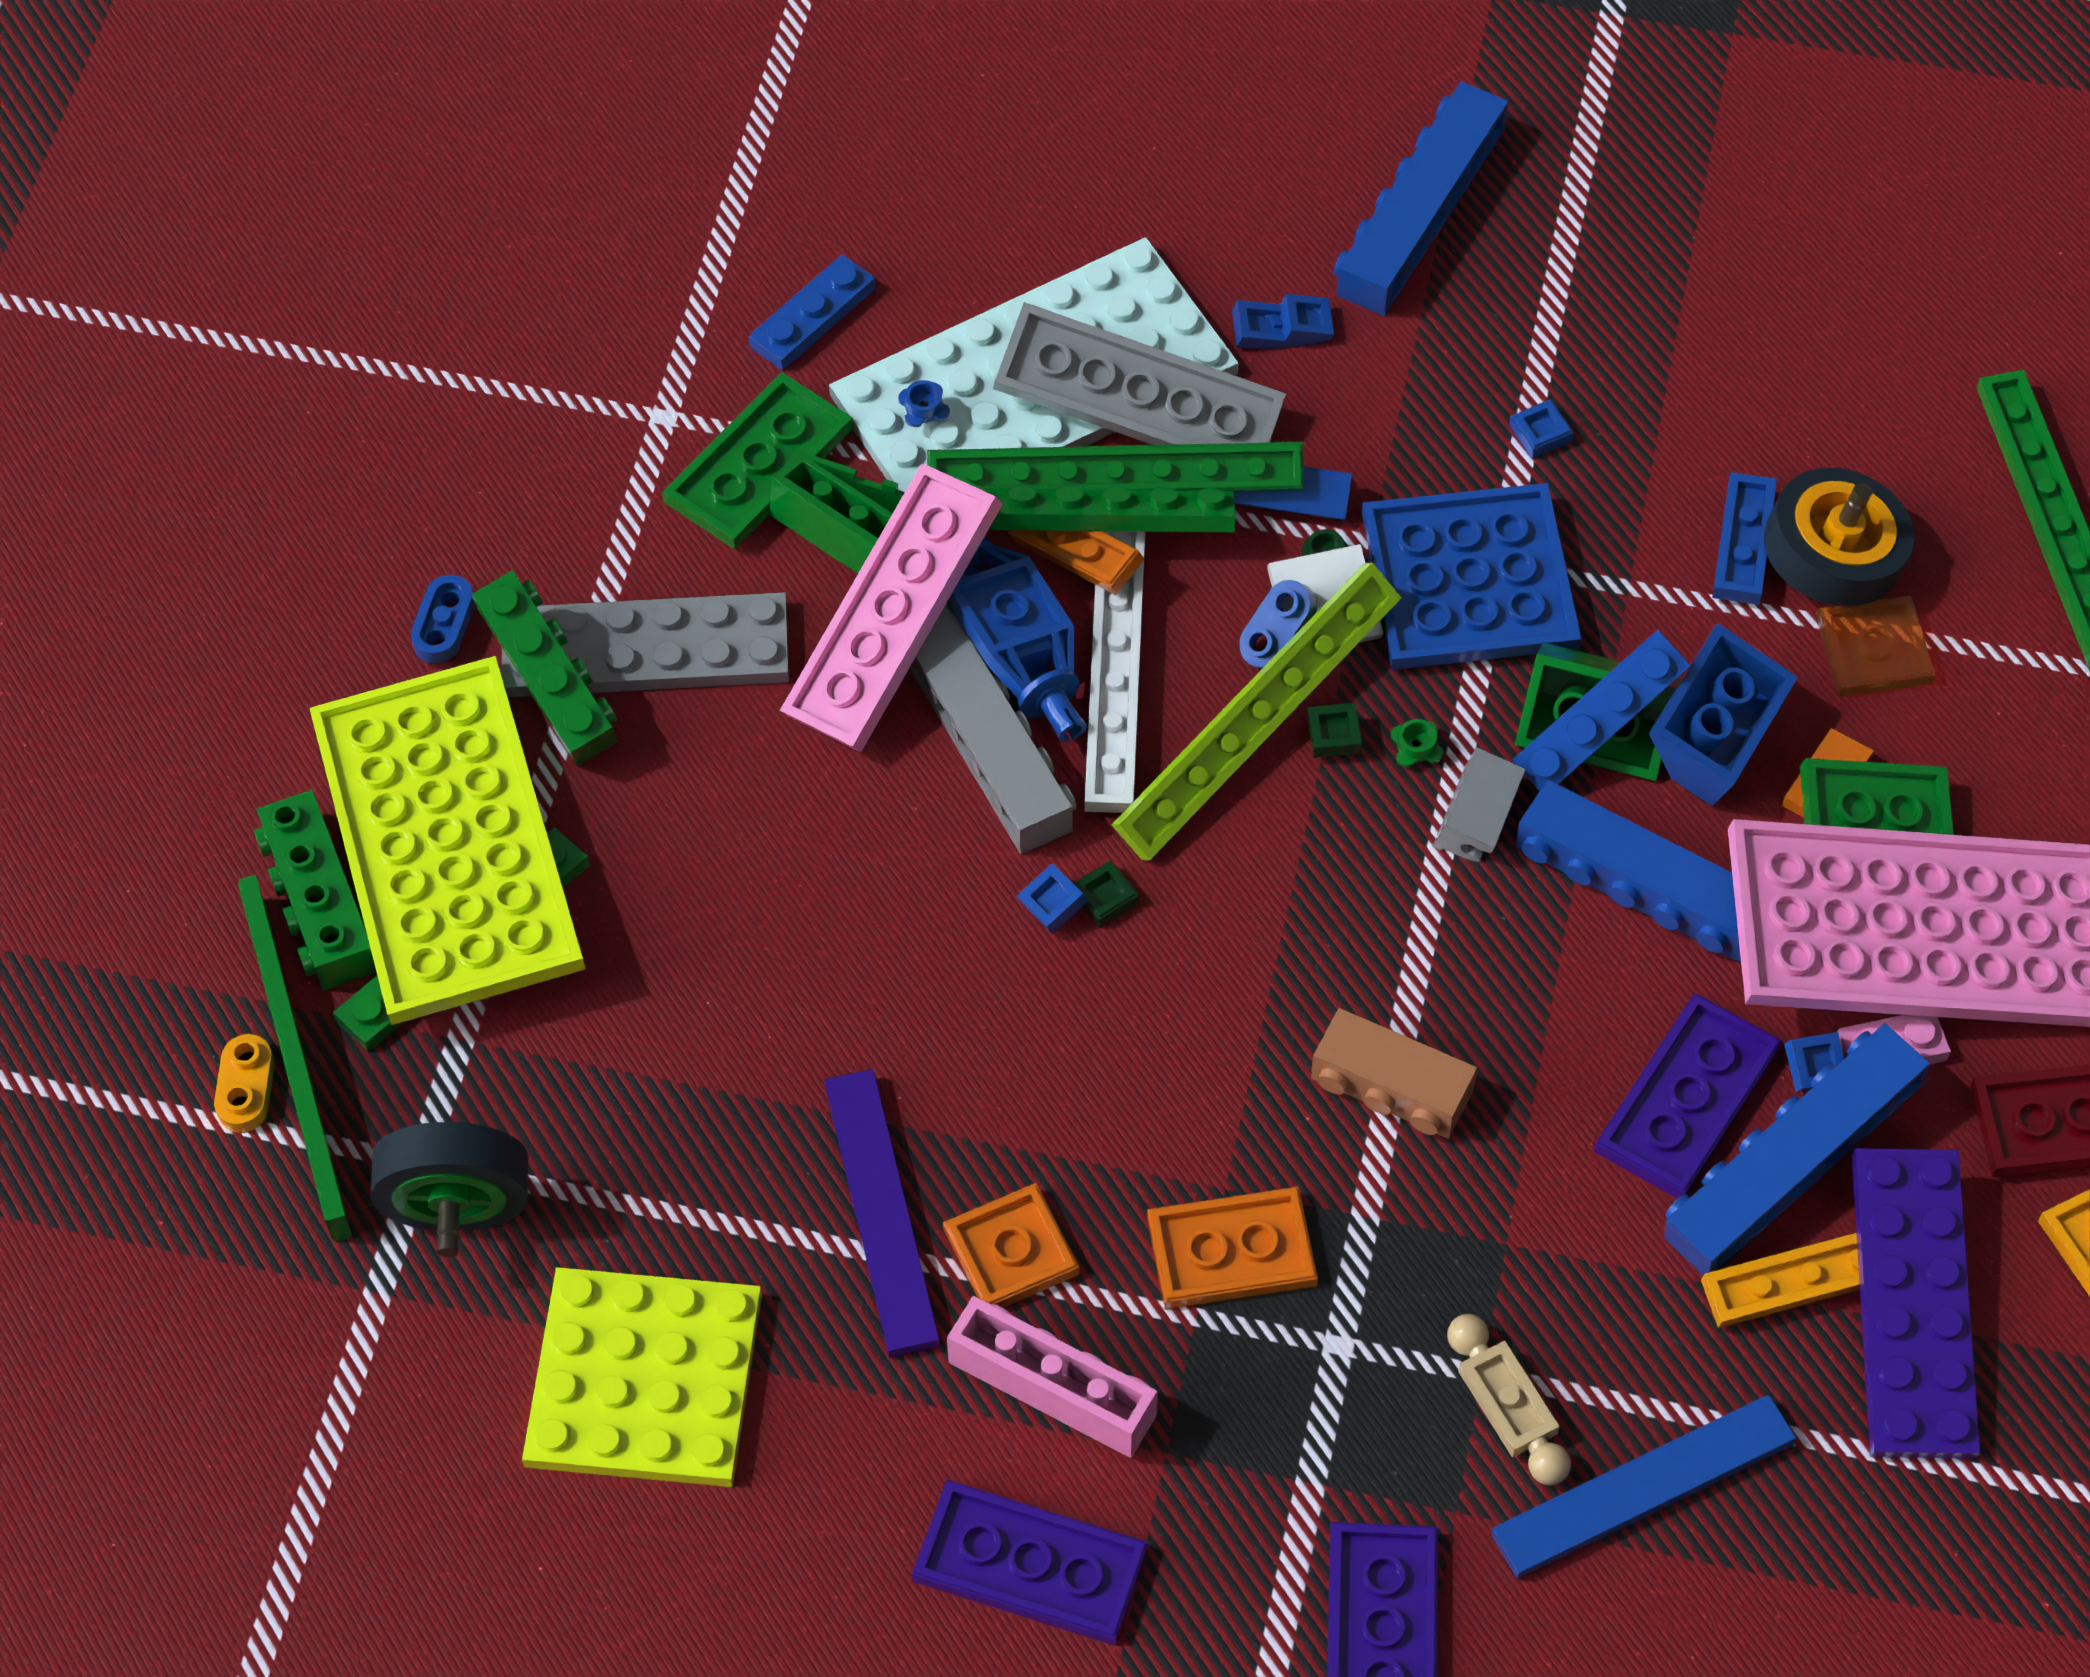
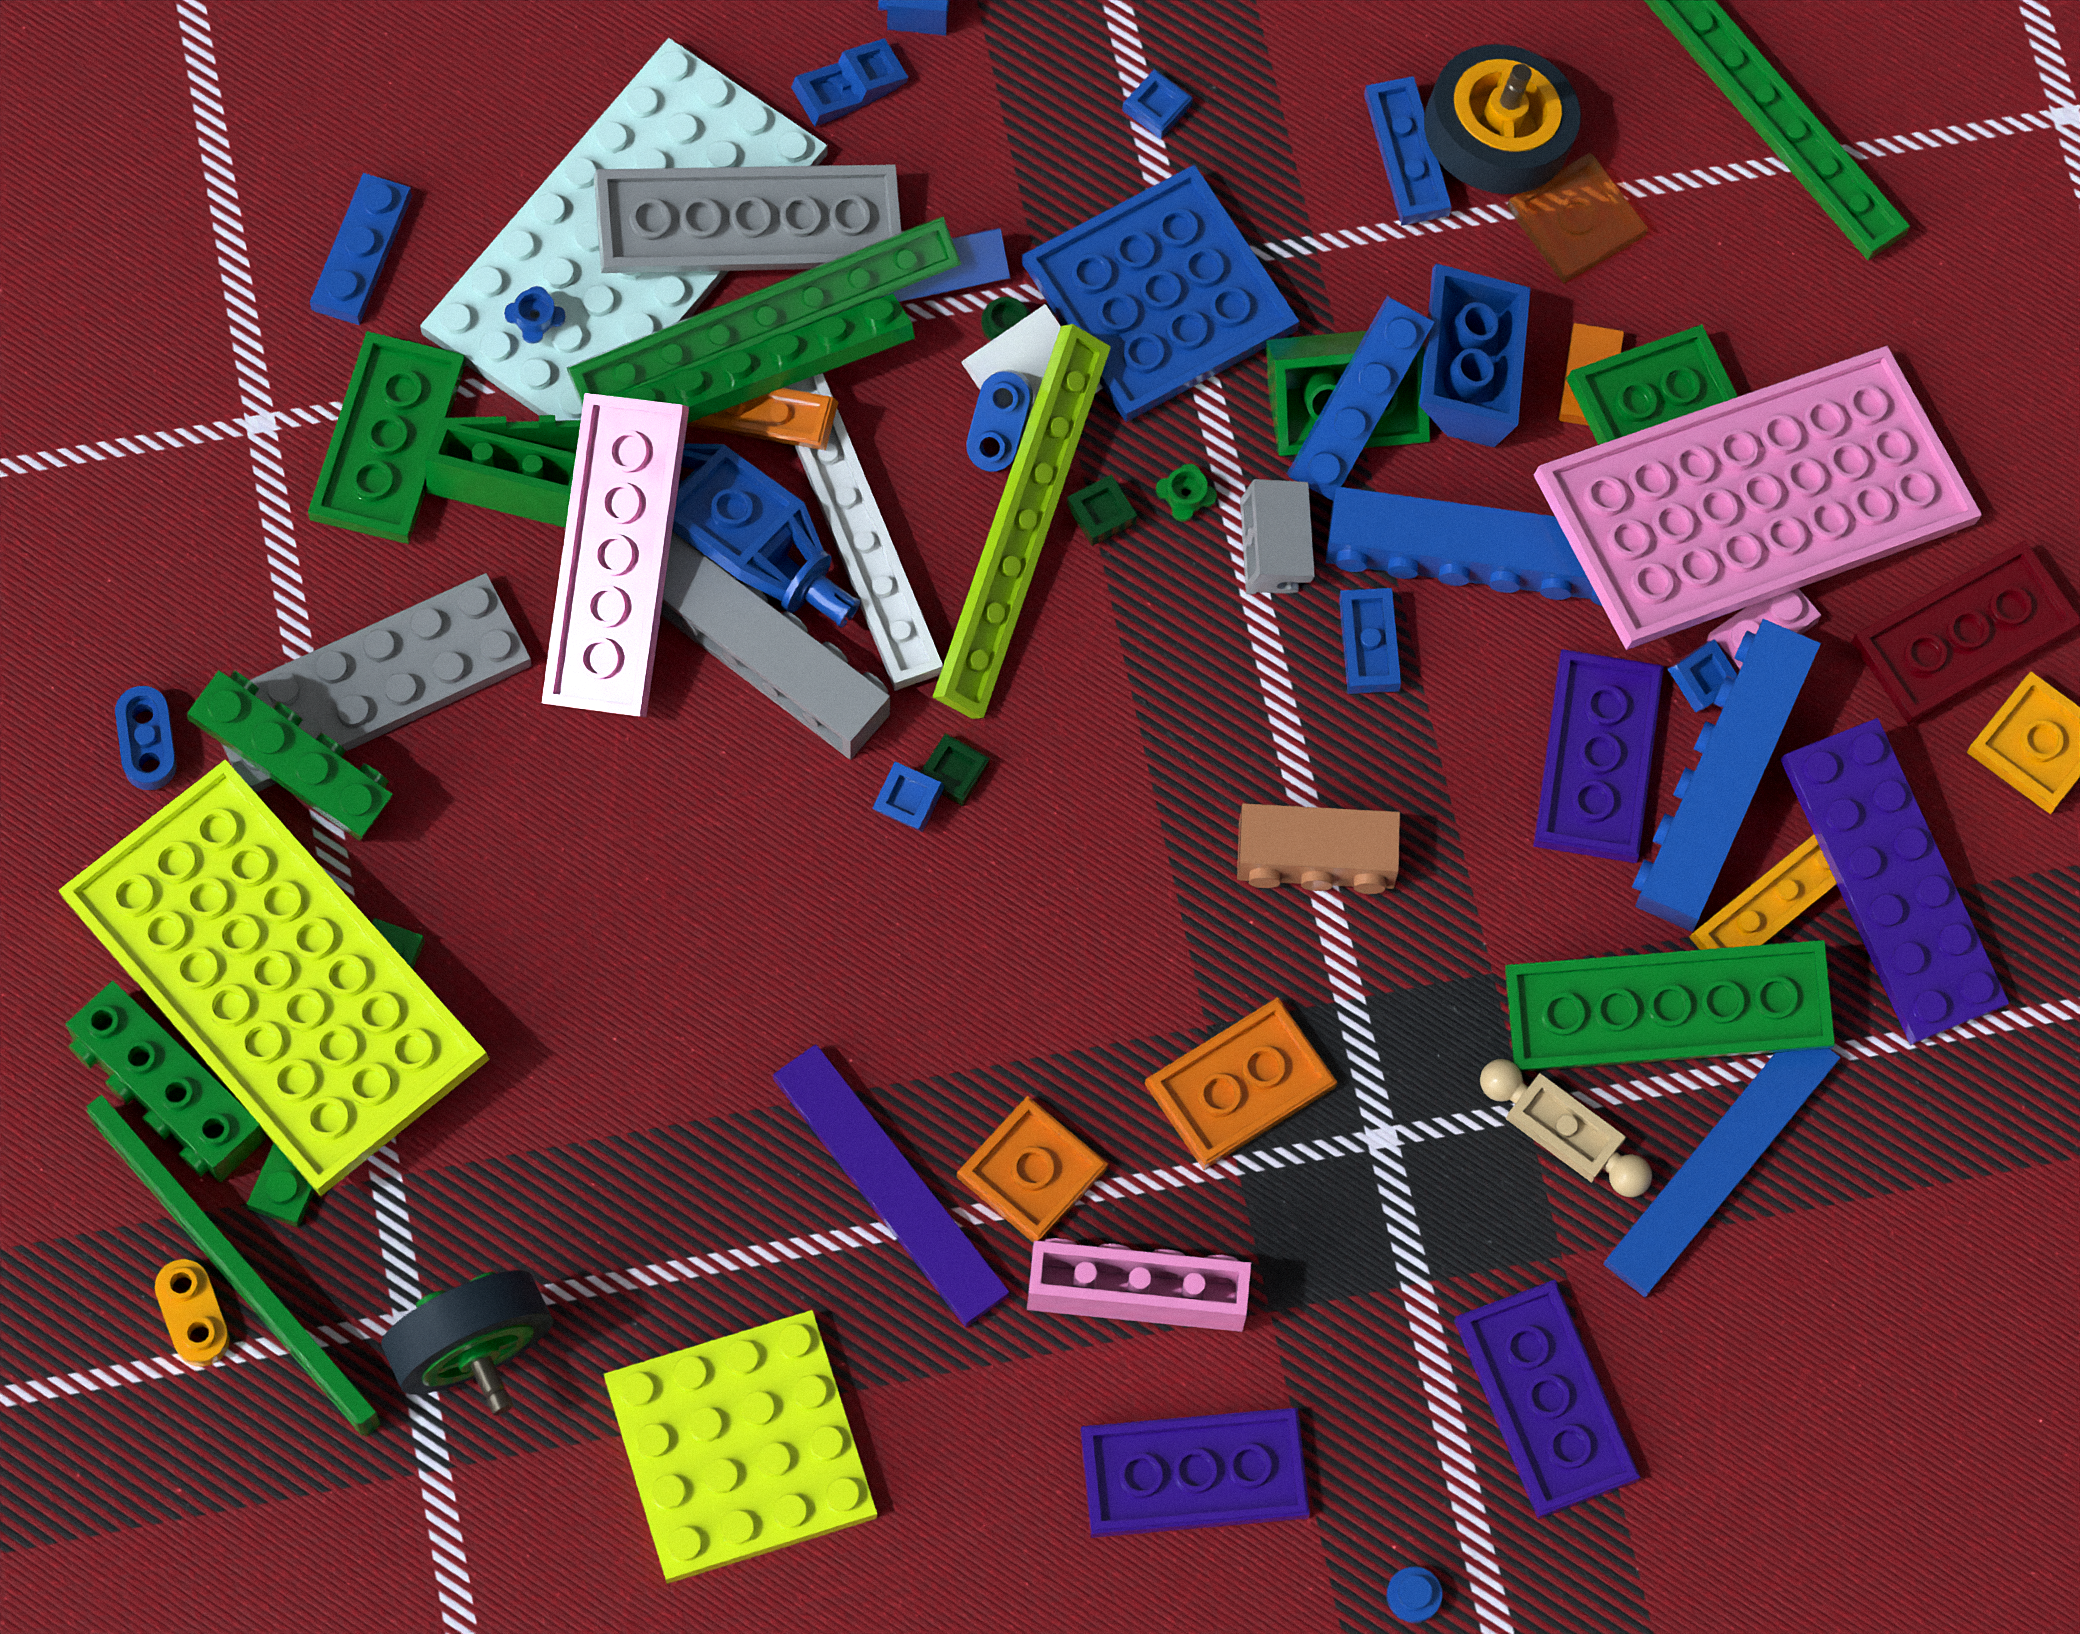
camera: 30 degrees left, 10 degrees up
(1522, 922) = (1369, 640): none -> blue plate
(1652, 1328) = (1669, 1006): none -> green plate

